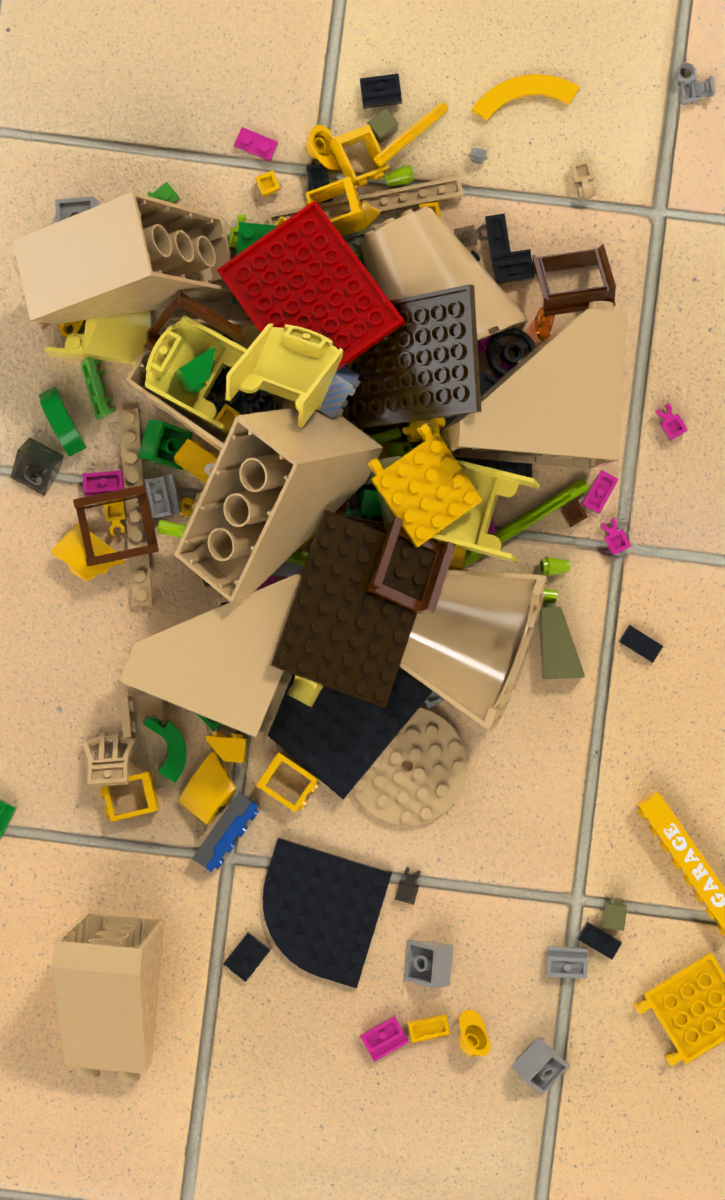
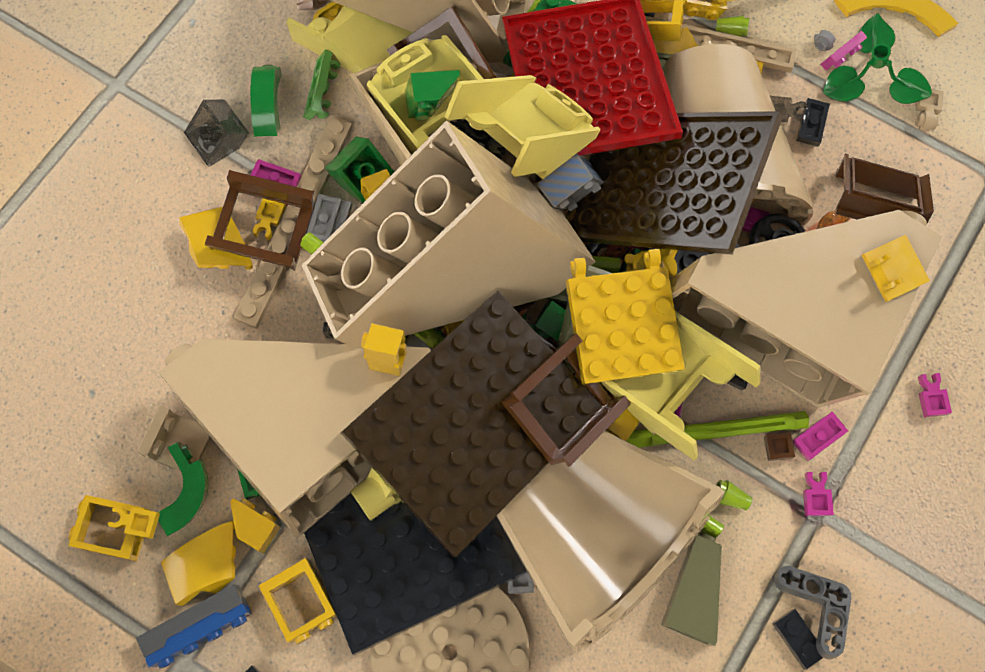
camera: 20 degrees right, 15 degrees down
(113, 770) = (108, 486): tan plate -> none
(152, 784) = (137, 523): none -> yellow plate
(269, 594) = (384, 349): none -> yellow brick
(495, 167) = (850, 47): none -> dark pink plate
(512, 266) = (818, 159): black plate -> none
(520, 131) = (909, 84): none -> green plant
(601, 358) = (895, 268): none -> yellow plate
(652, 610) = (829, 606): none -> dark grey beam

